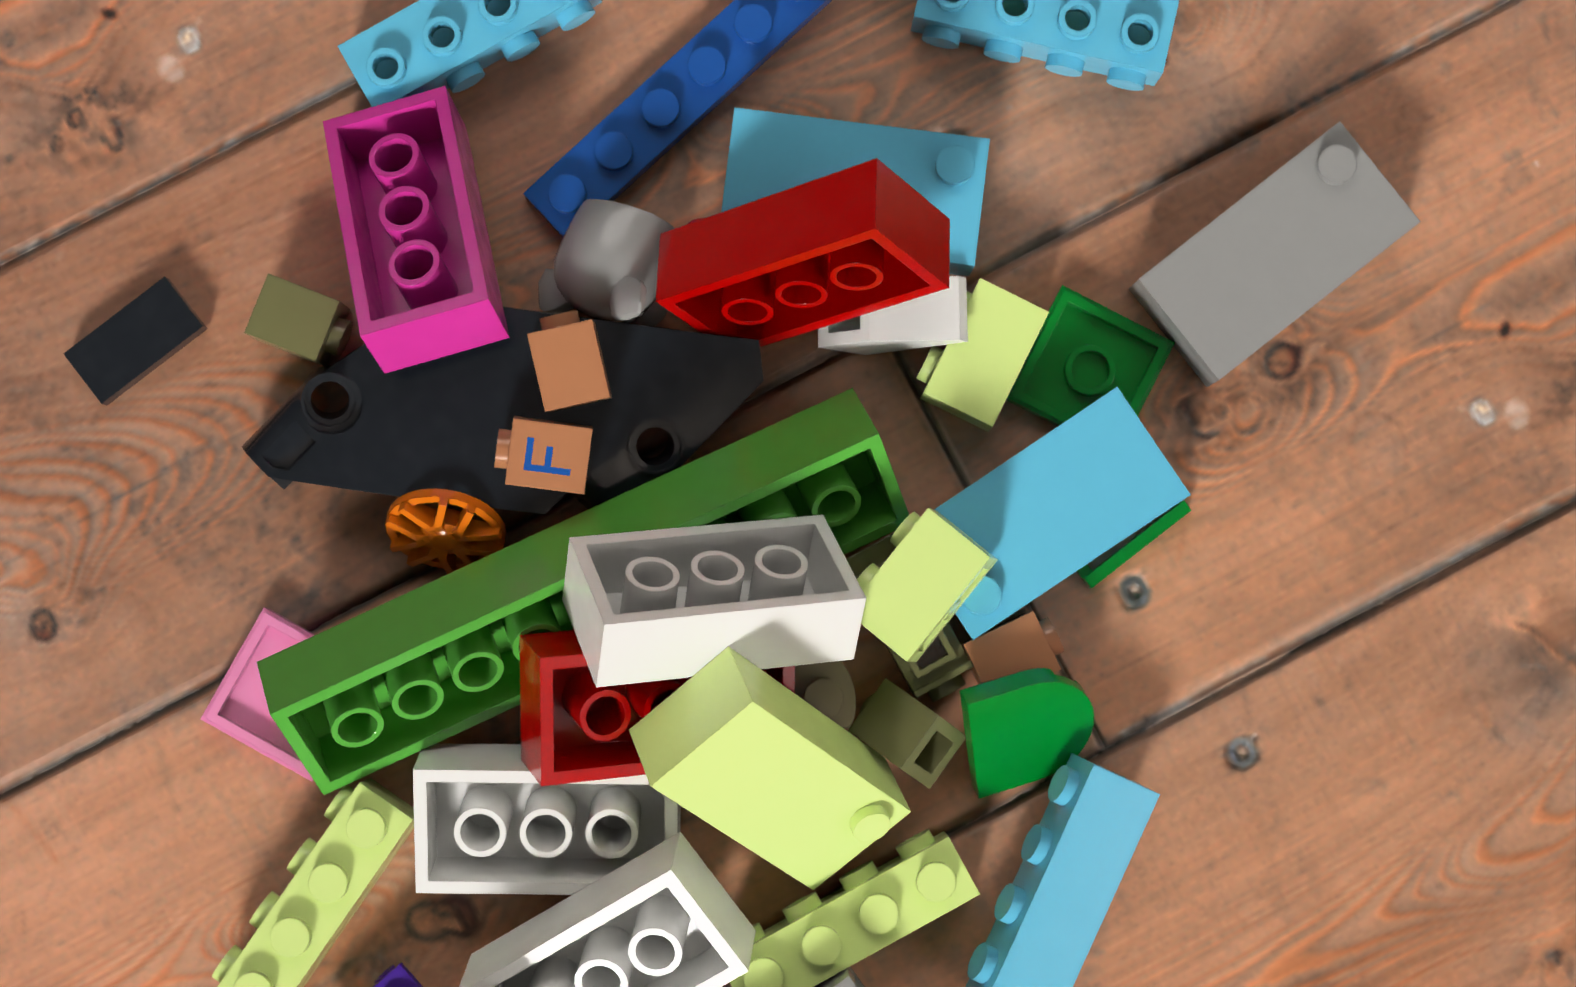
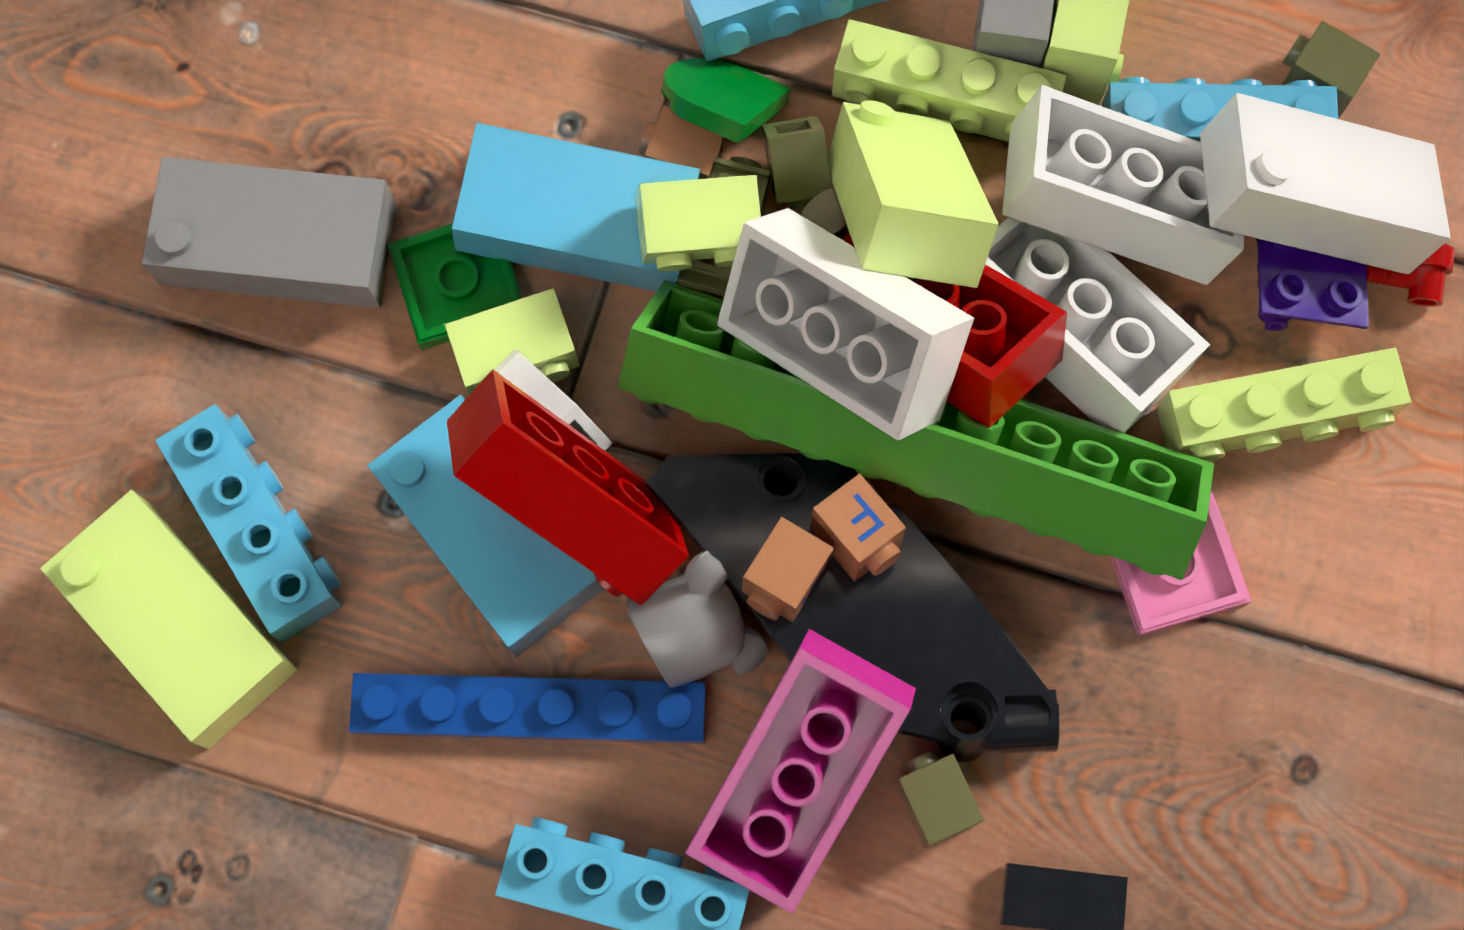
camera: 130 degrees left, 10 degrees down
(442, 532) = (972, 560): orange wheel -> none

